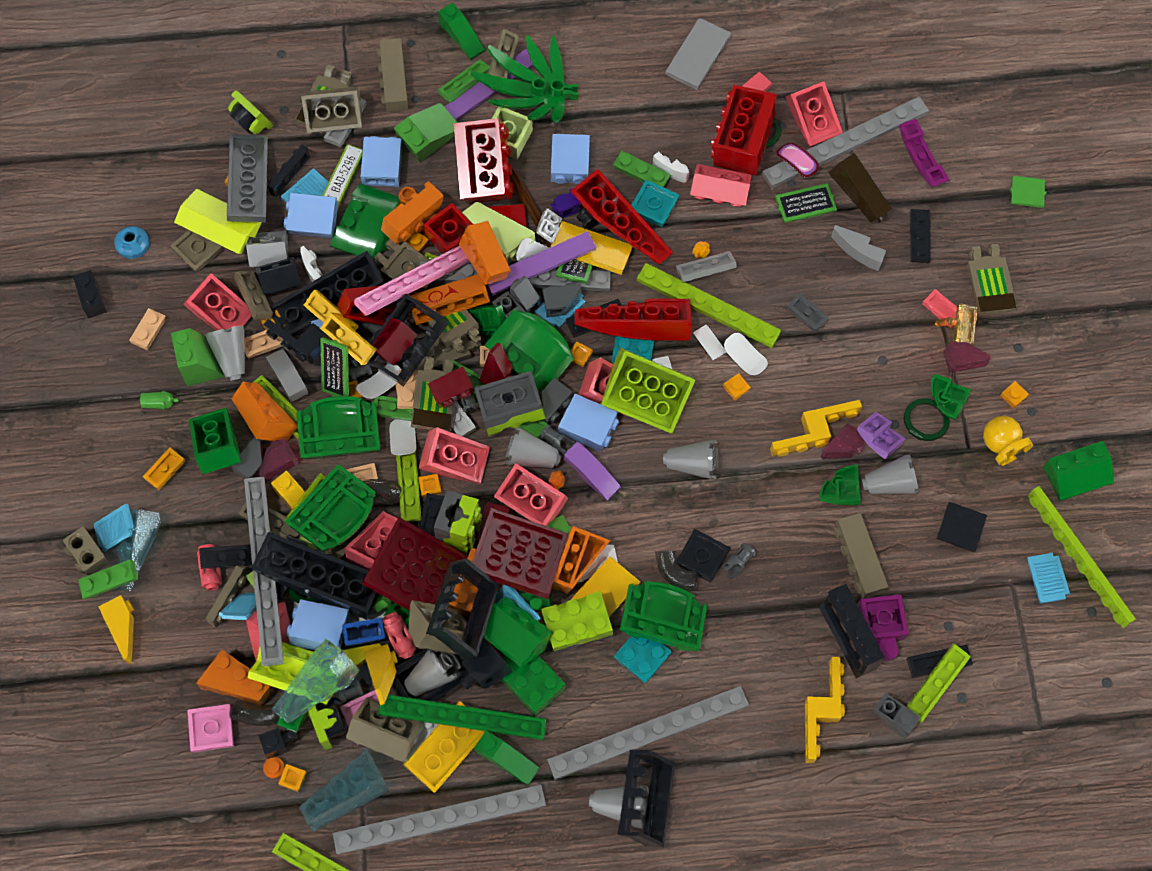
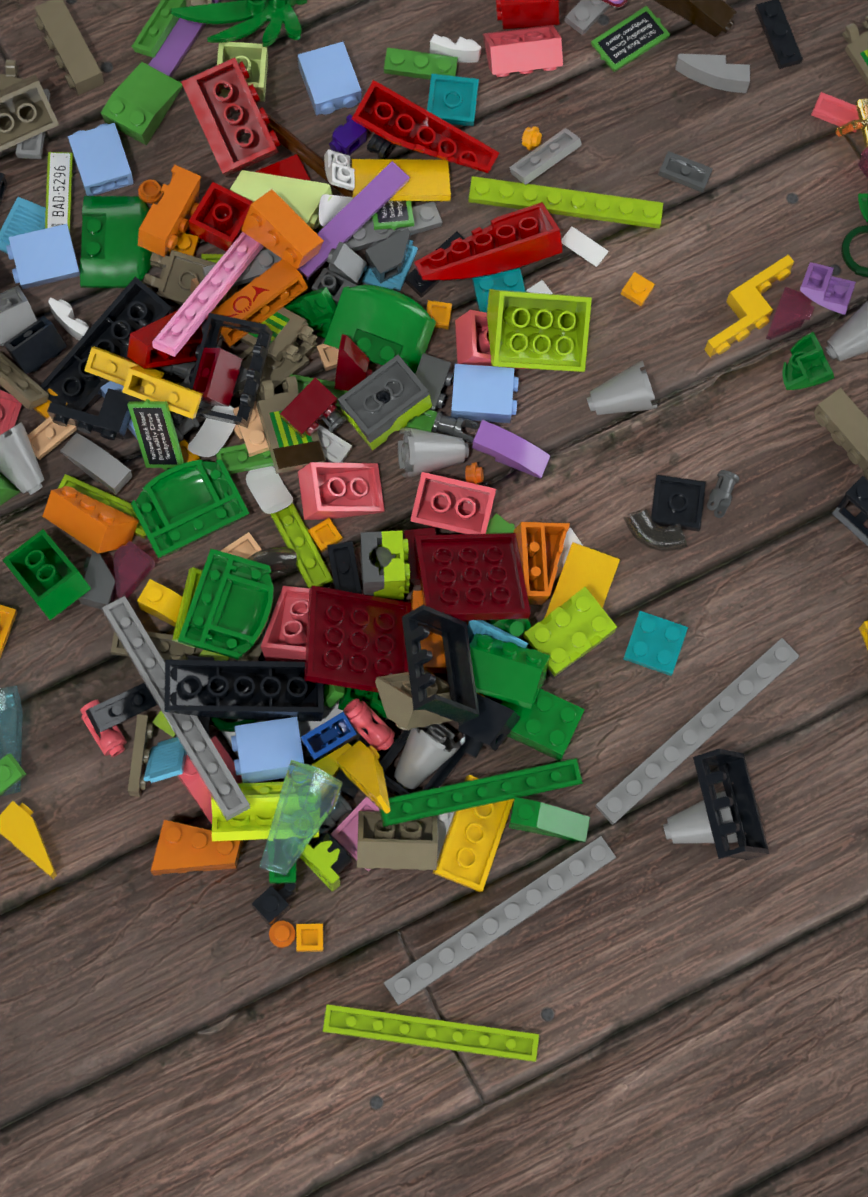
camera: 25 degrees left, 5 degrees up
(210, 728) = (187, 916): bright pink plate -> none
(253, 714) = (235, 880): clear smoke cylinder -> none
(345, 792) = (382, 927): clear light blue wedge -> none
(664, 615) = (664, 588): green slope -> none
(745, 354) = (632, 247): white sticker -> none

